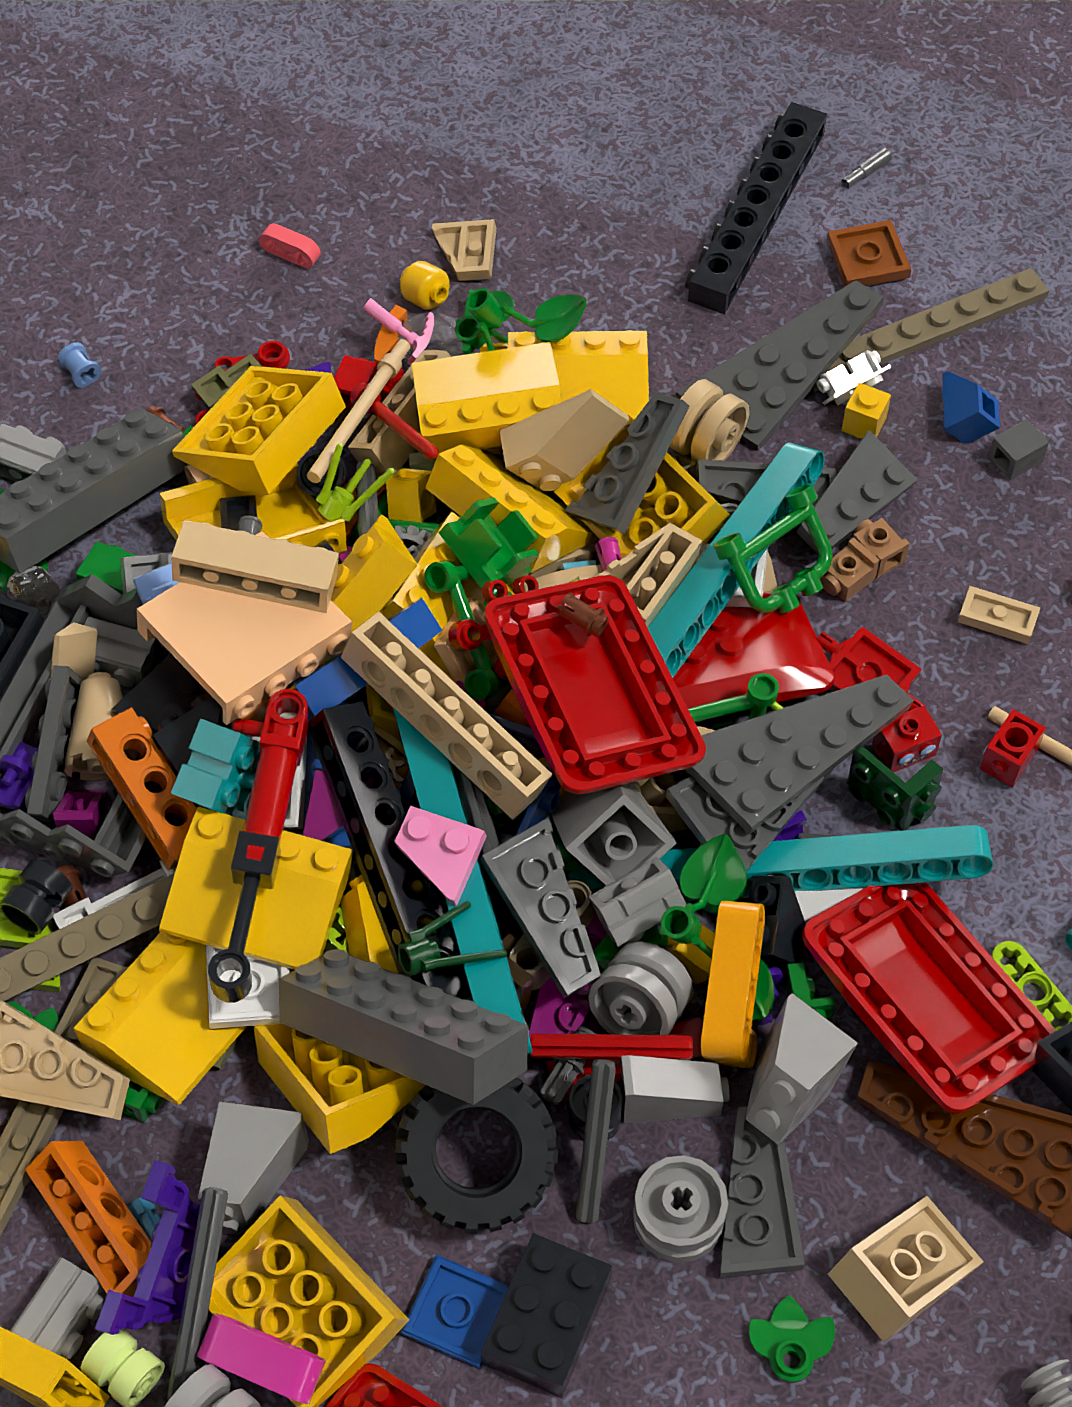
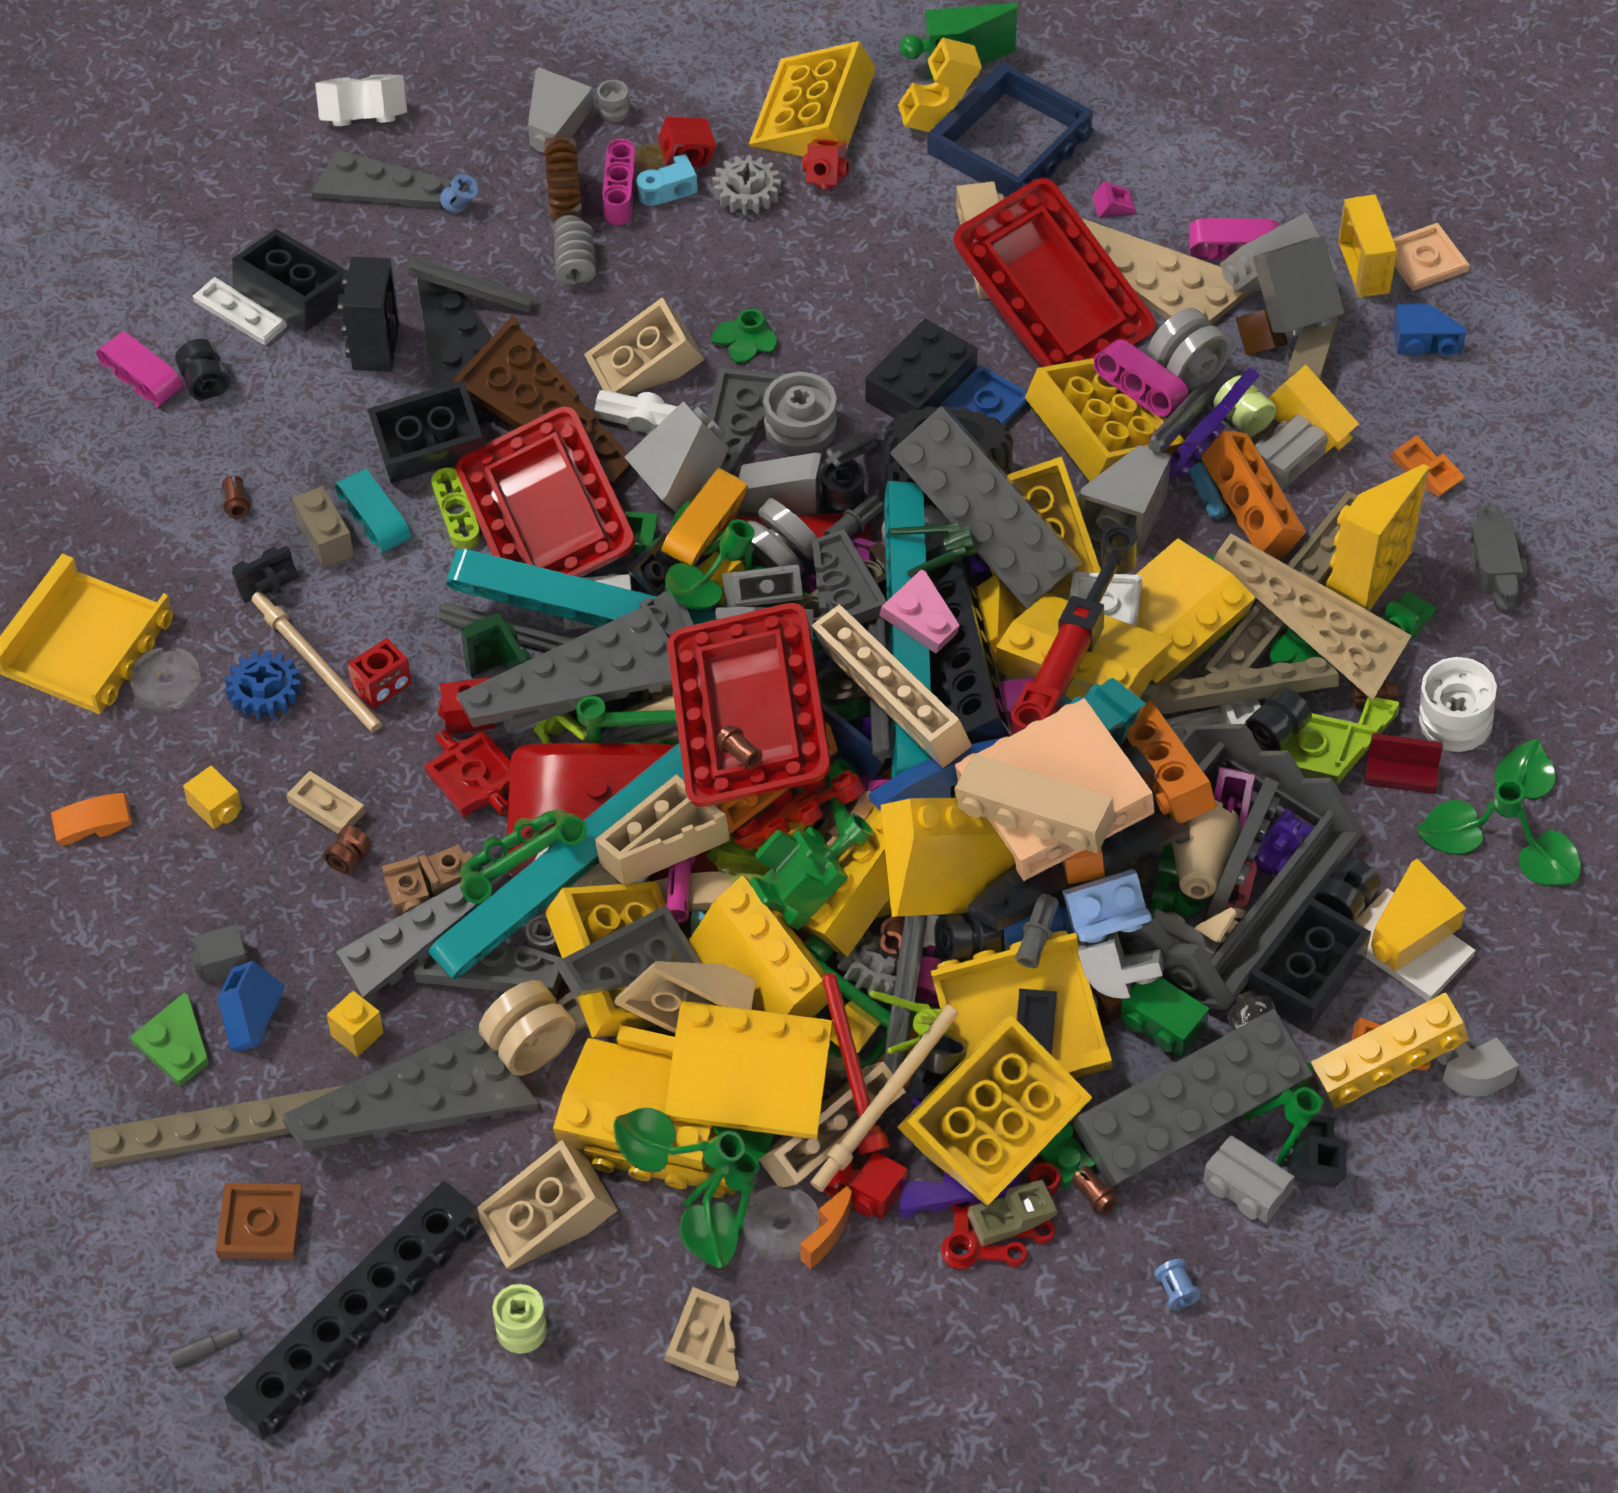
camera: 165 degrees left, 5 degrees down
(289, 245) = (910, 1386): coral beam -> none
(418, 343) = (799, 1205): bright pink piece -> none
(424, 285) = (769, 1291): yellow head -> none
(610, 1046) = (820, 507): red axle -> none
(621, 218) = (519, 1318): none -> yellowish green wheel
(635, 303) = (546, 1206): none -> tan slope
(840, 384) = (347, 1063): white hinge -> none
(869, 1174) = (639, 412): none -> white piece
(954, 569) = (347, 850): none -> copper wheel
(1020, 378) = (173, 1041): none -> bright green wing

